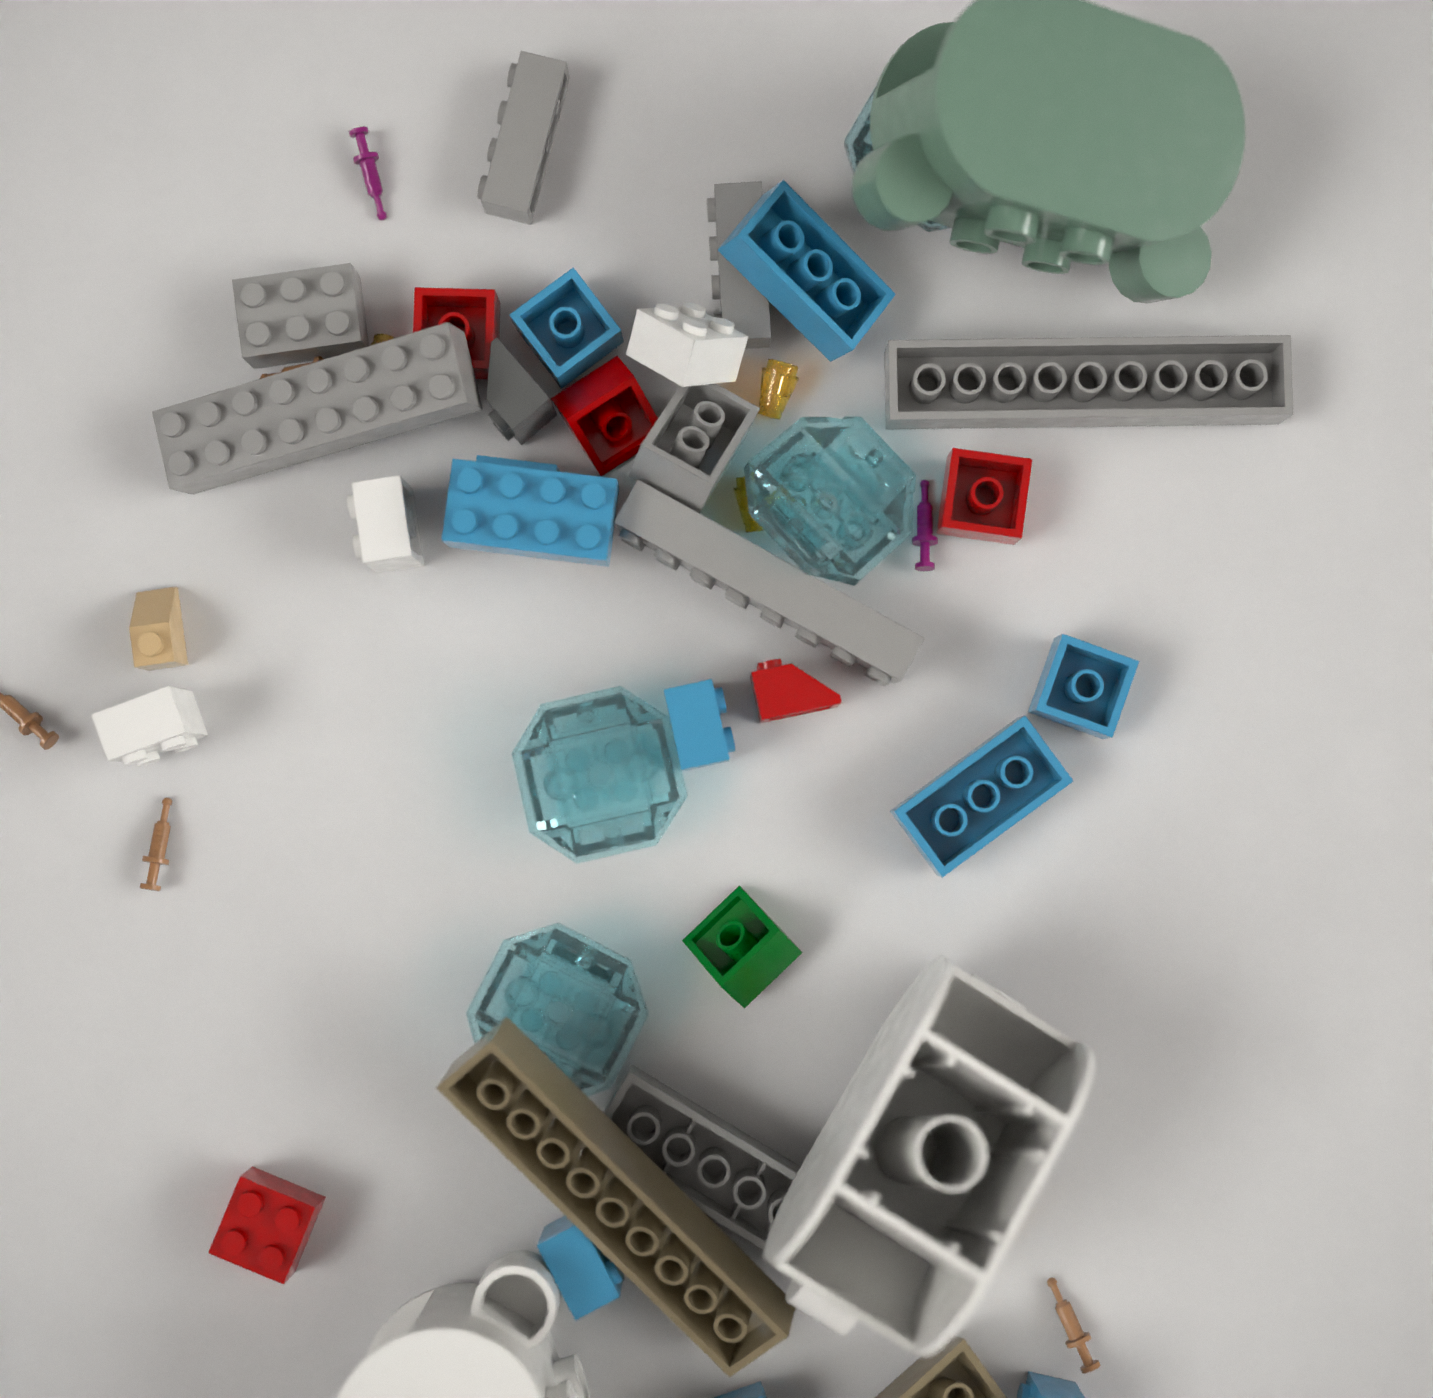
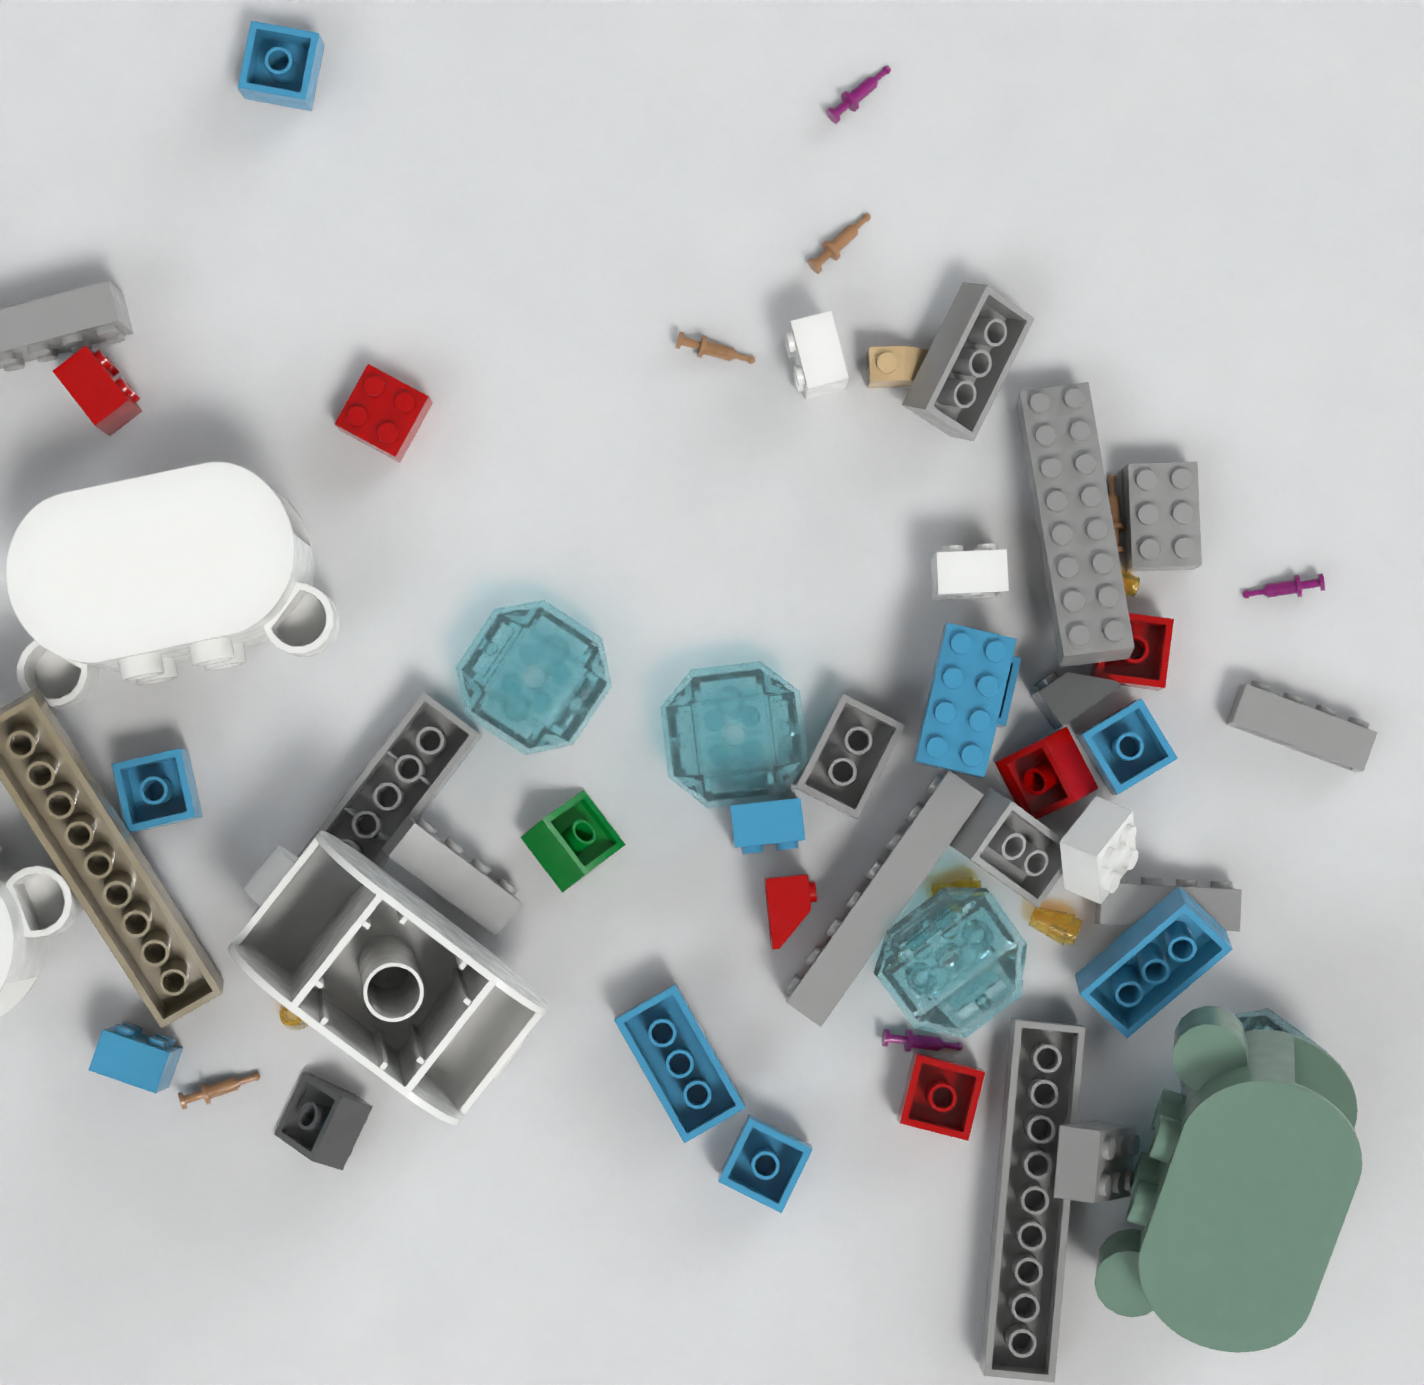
camera: 90 degrees right, 0 degrees up
(140, 551) = (968, 361): none -> light grey brick
(579, 1268) = (324, 676): dark azure brick -> none
(610, 639) = (849, 756): none -> light grey brick
(618, 1197) = (376, 714): dark tan brick -> none
(796, 1085) = (452, 875): none -> light grey brick
(1039, 312) = (1095, 1161): none -> light grey brick
(1095, 1199) = (323, 1121): none -> dark grey slope

